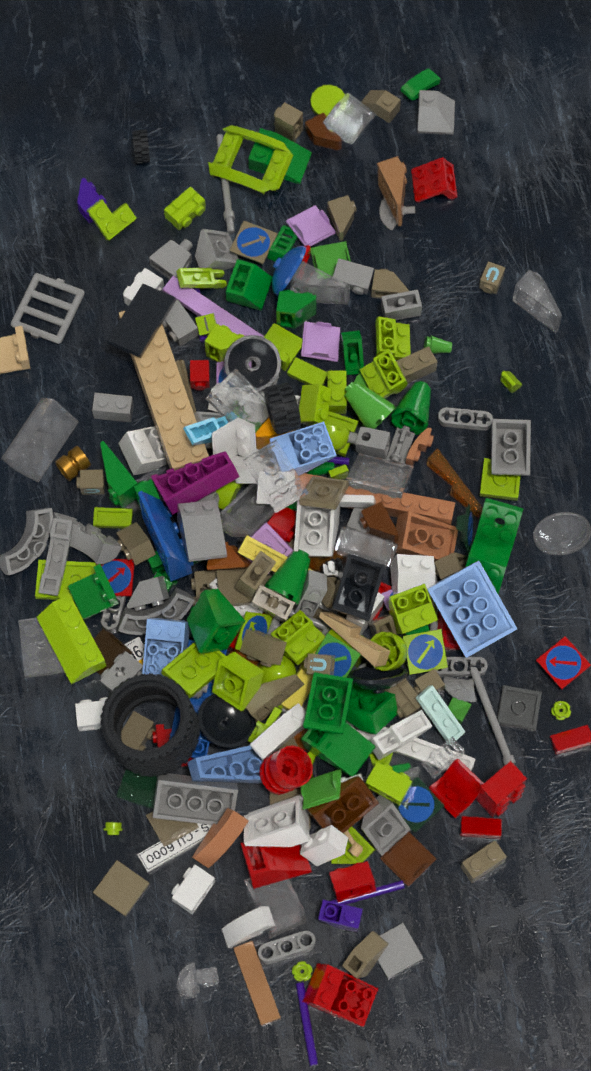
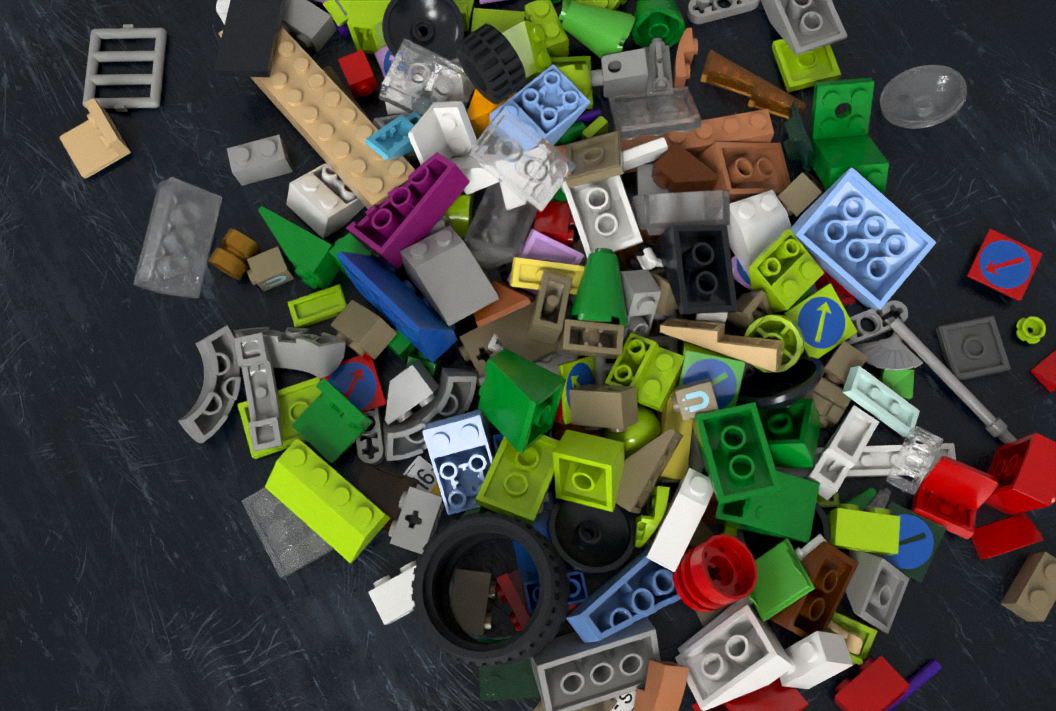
camera: 15 degrees left, 5 degrees up
(408, 859) = (926, 623): reddish brown piece -> none

